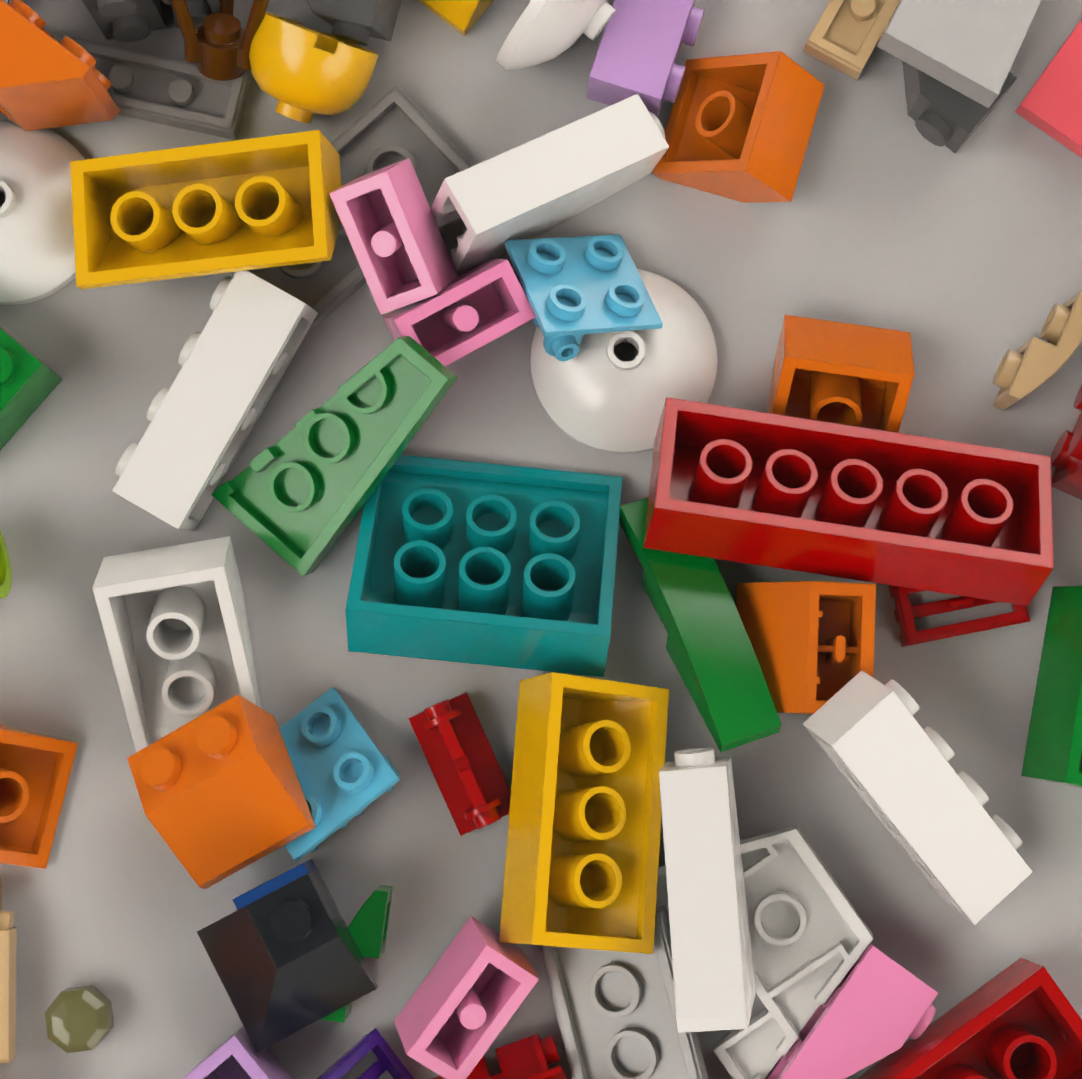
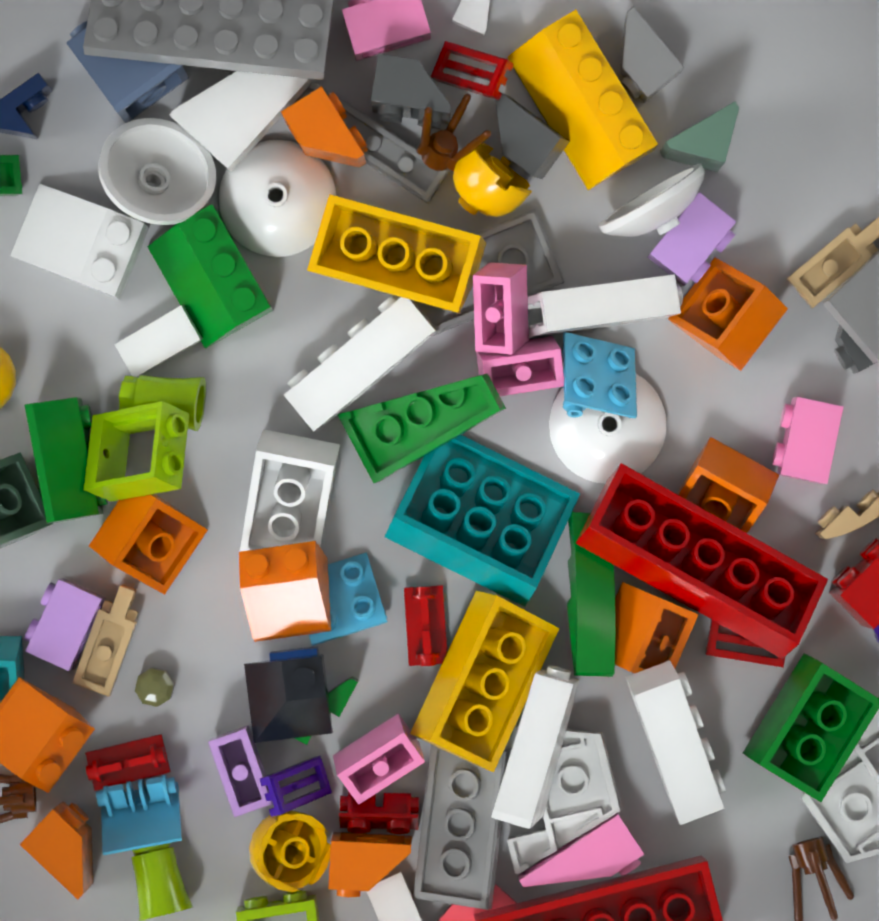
camera: 15 degrees right, 5 degrees up
(931, 267) = (807, 440): none -> bright pink brick

